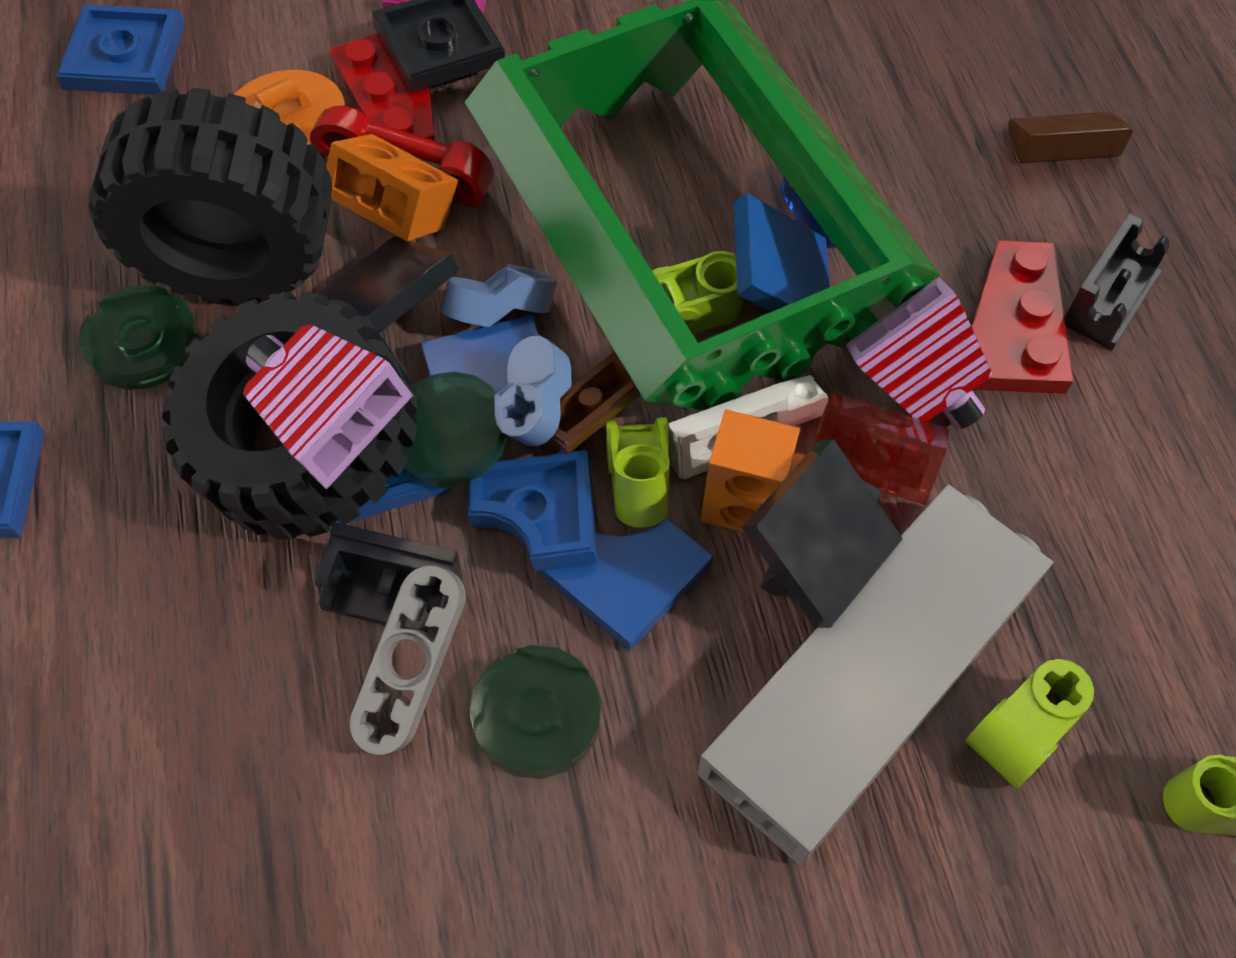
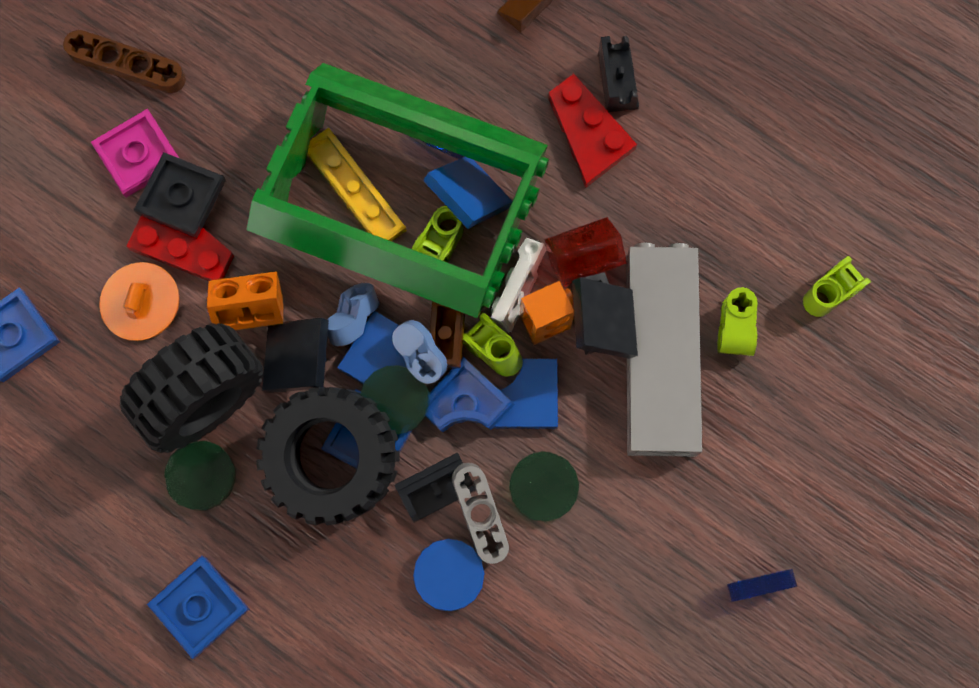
camera: 40 degrees left, 15 degrees up
(290, 714) = (448, 575): none -> blue tile
(322, 397) = (358, 444): lavender torso -> none
(458, 160) = (264, 259): red piece -> none
(647, 172) = (354, 187): none -> yellow tile
(926, 356) = (570, 192): lavender torso -> none

